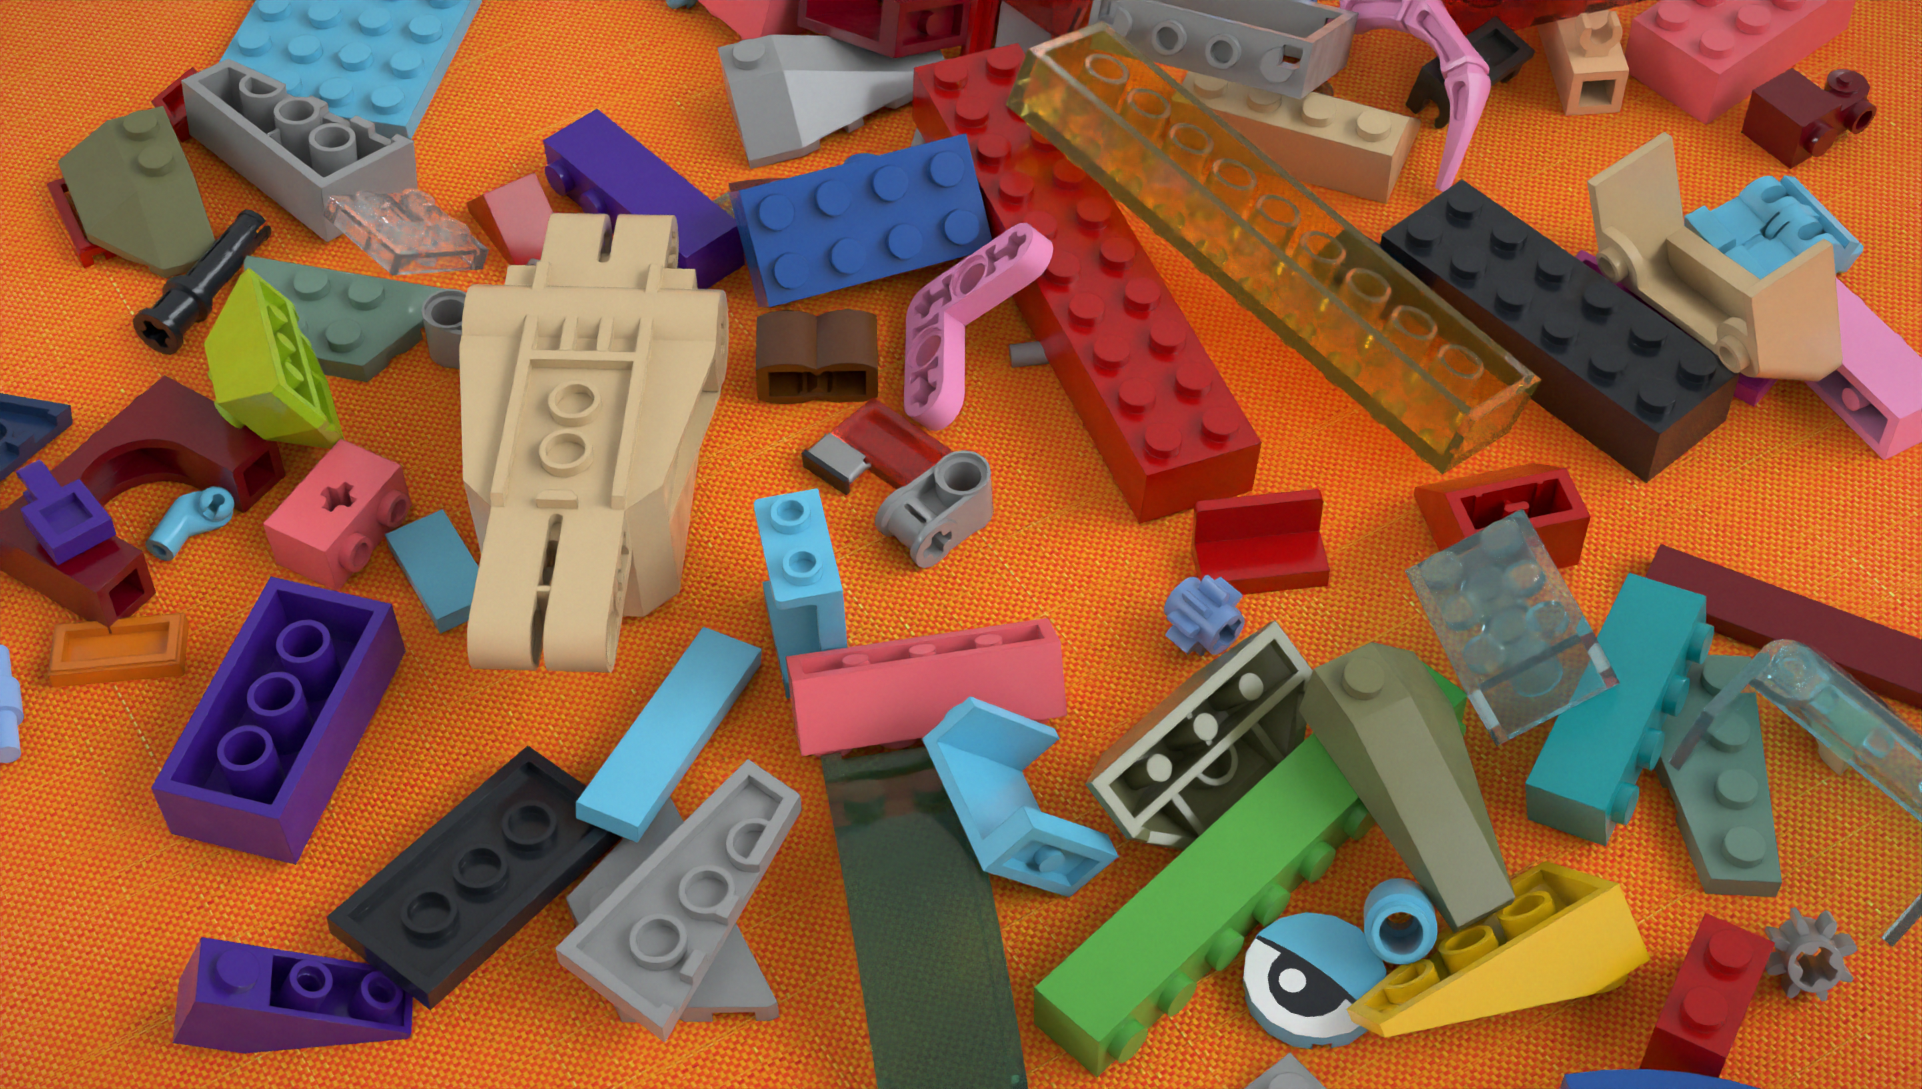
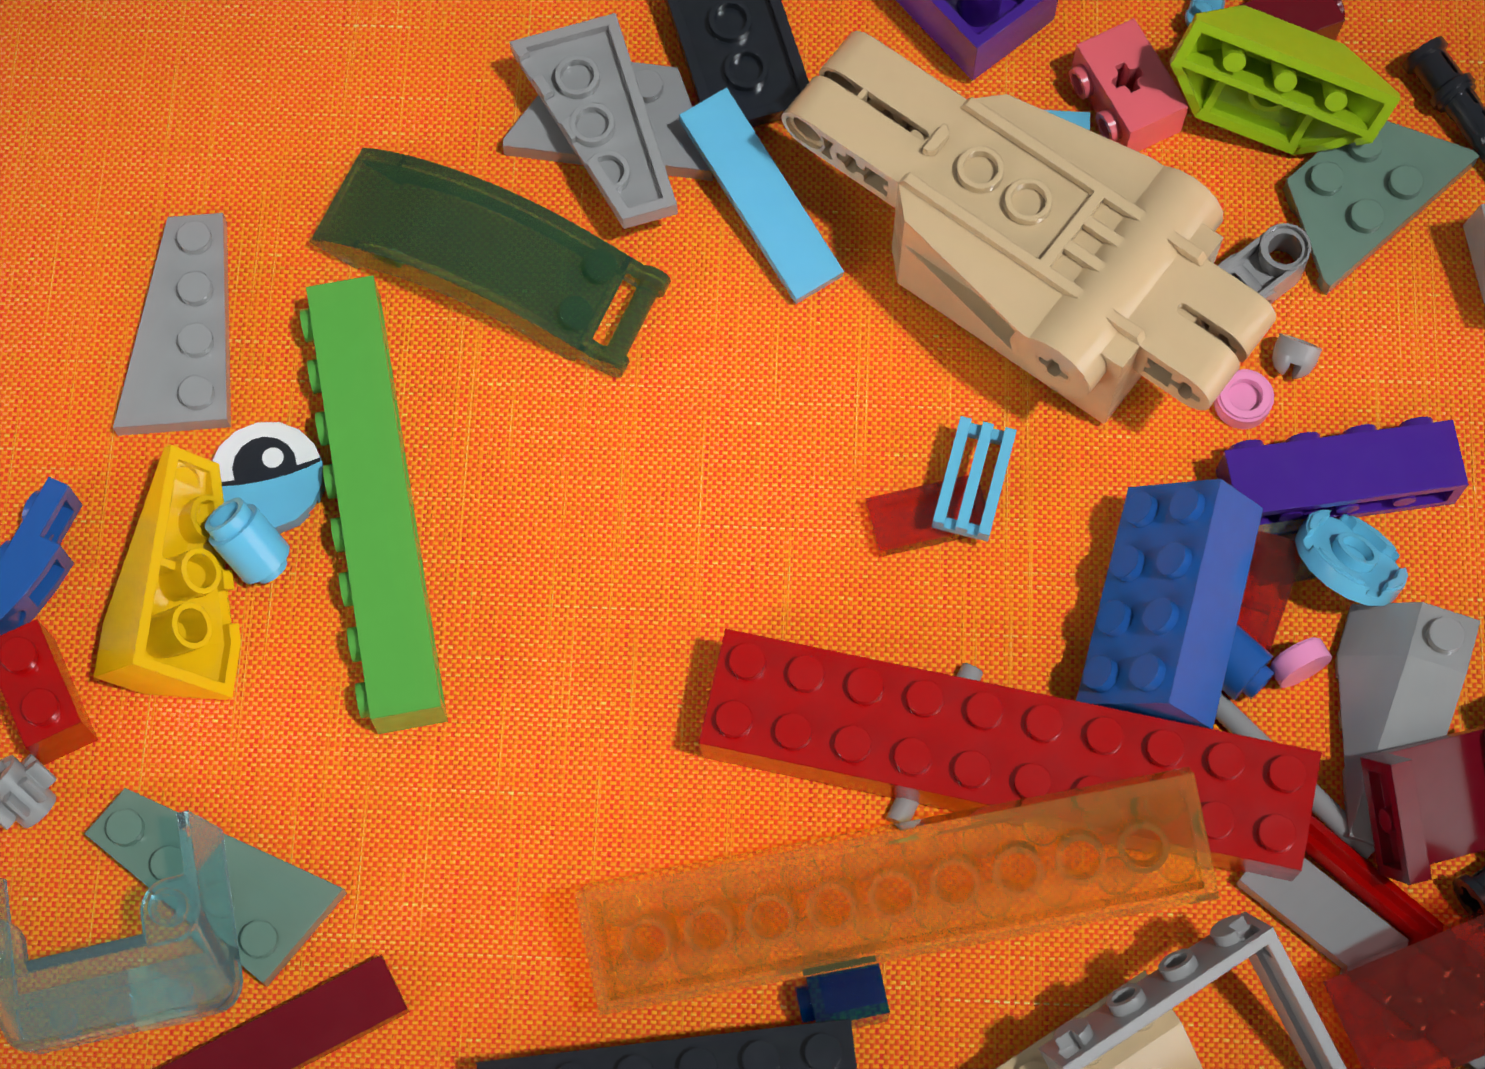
camera: 125 degrees right, 20 degrees up
(406, 232) = (1415, 271): clear plate -> none
(514, 218) = (1390, 374): slope -> none
(724, 150) = (1351, 558): none -> medium azure tile
(804, 583) = (794, 320): medium azure panel -> none
(816, 356) = (1061, 507): reddish brown brick -> none
(827, 149) = (1300, 662): none -> bright pink tile
(835, 462) = (935, 461): light grey piece -> none
(840, 409) = (985, 435): none -> medium azure tile
(907, 686) = (665, 369): coral brick -> none
(939, 507) = (834, 488): light grey piece -> none
(951, 301) = (1011, 604): bright pink beam -> none
(981, 765) = (520, 351): medium azure panel -> none
(1204, 615) = (592, 608): medium blue gear -> none
(1206, 743) = (476, 511): olive wedge -> none
(1261, 541) = (627, 703): red panel -> none
(1413, 773) = (337, 618): olive wedge -> none
(1473, 502) = (516, 895): red slope -> none
(1511, 627) = (391, 783): clear light blue brick -> none
(1601, 745) = (285, 827): teal brick -> none

